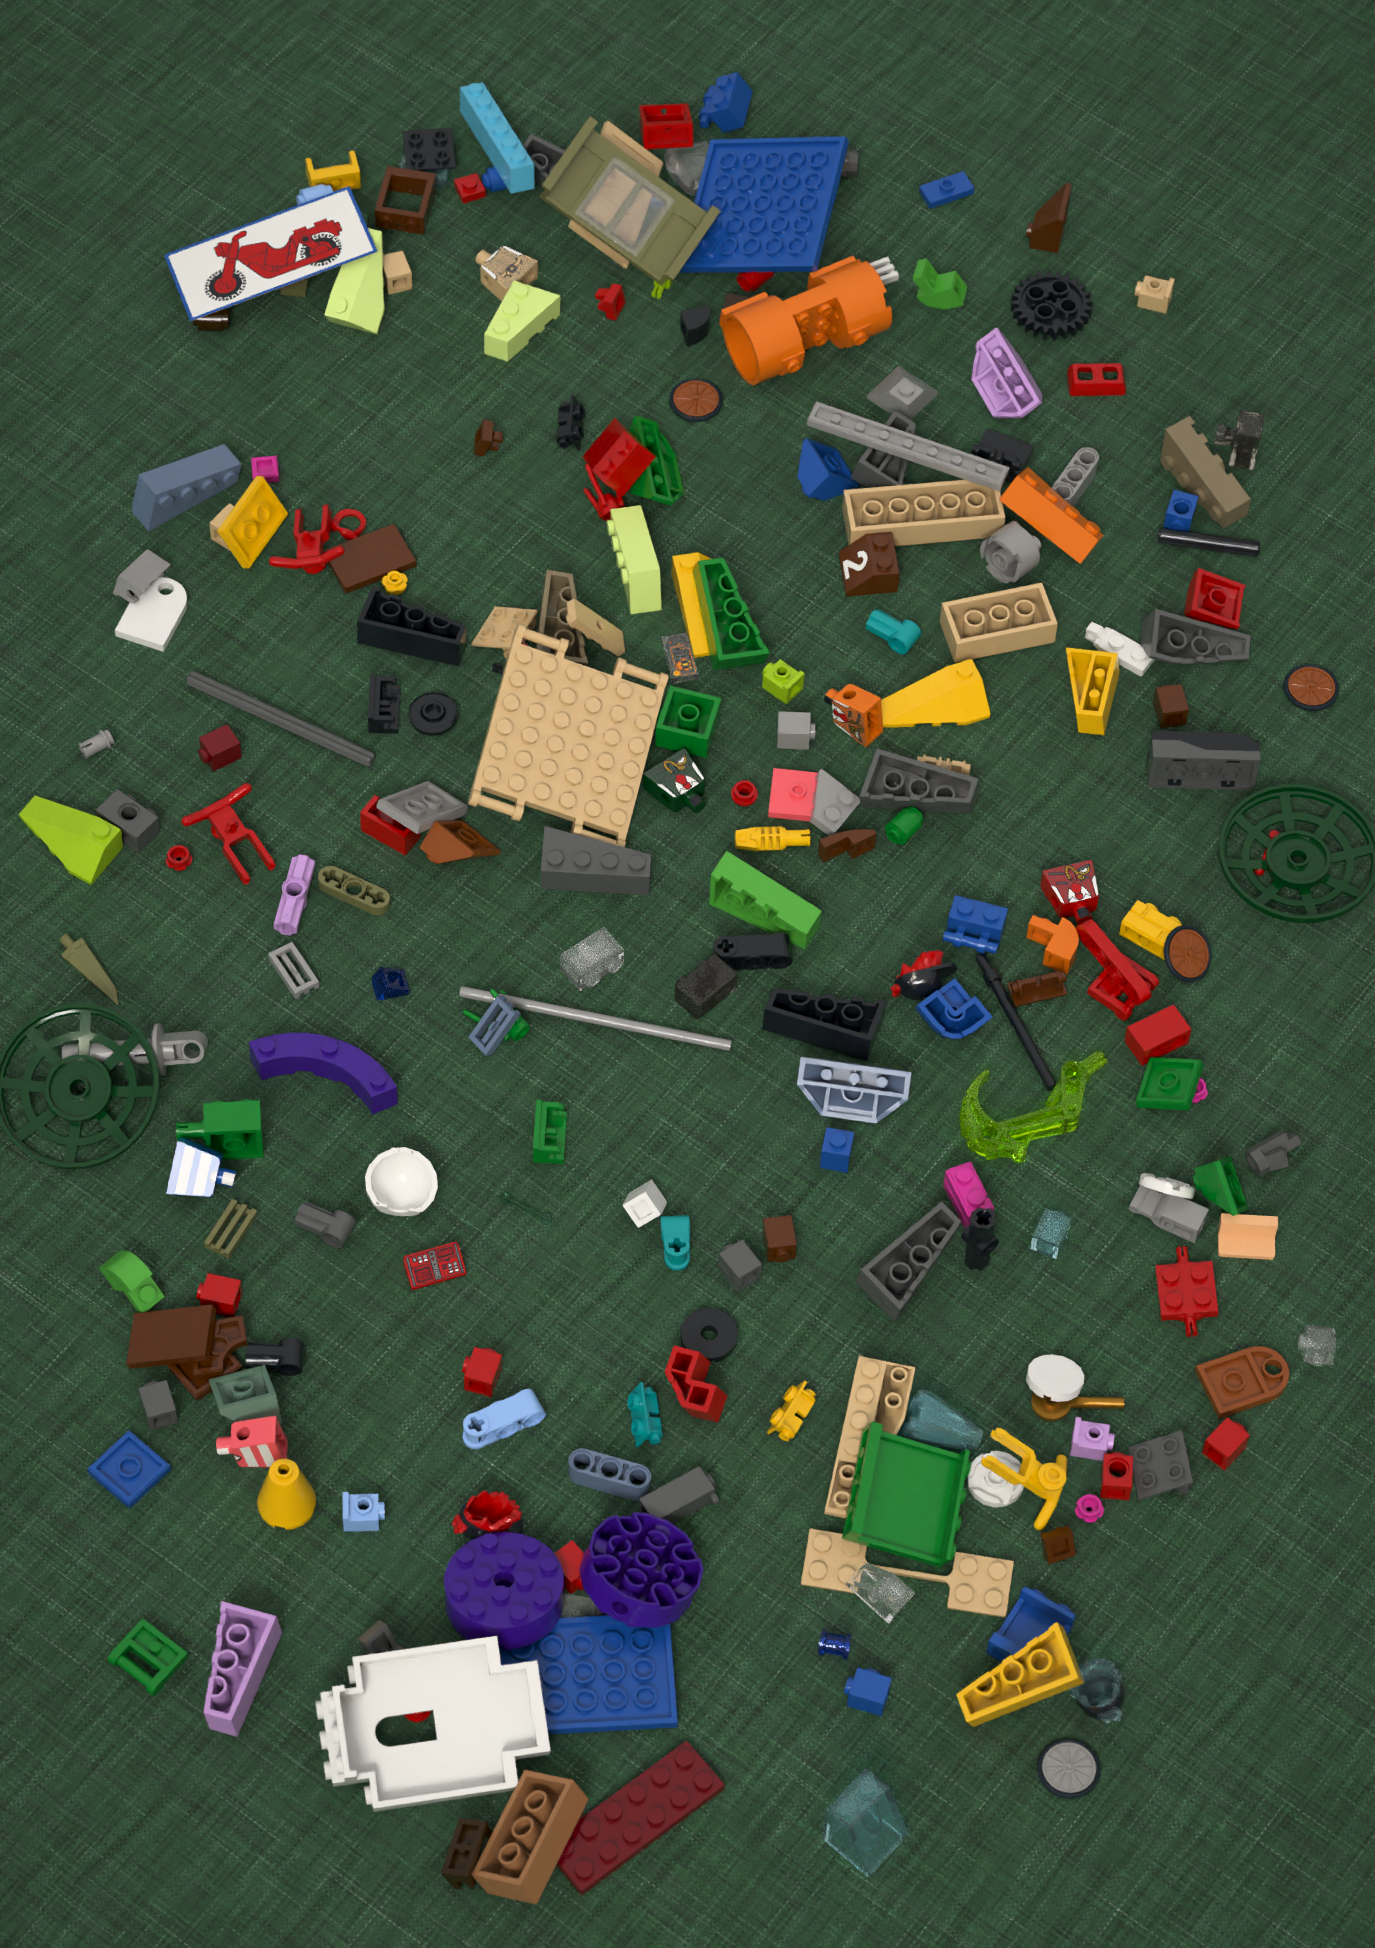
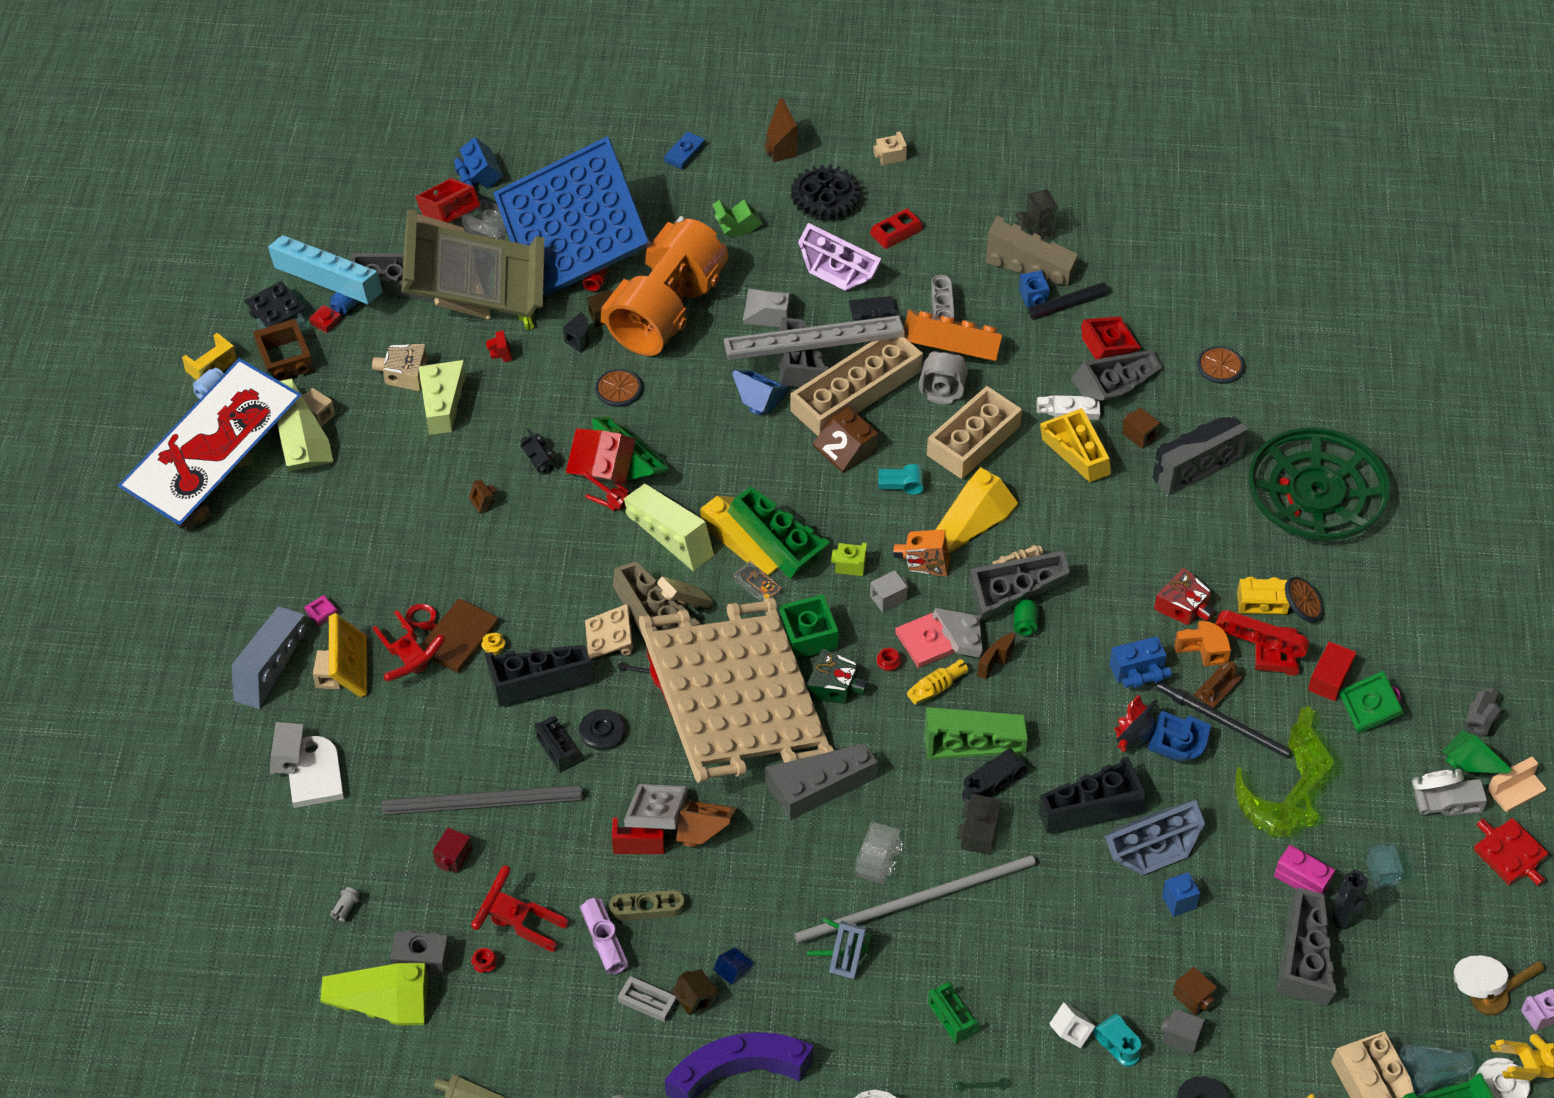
camera: 30 degrees left, 5 degrees down
(335, 985) = (694, 991): none -> dark brown brick

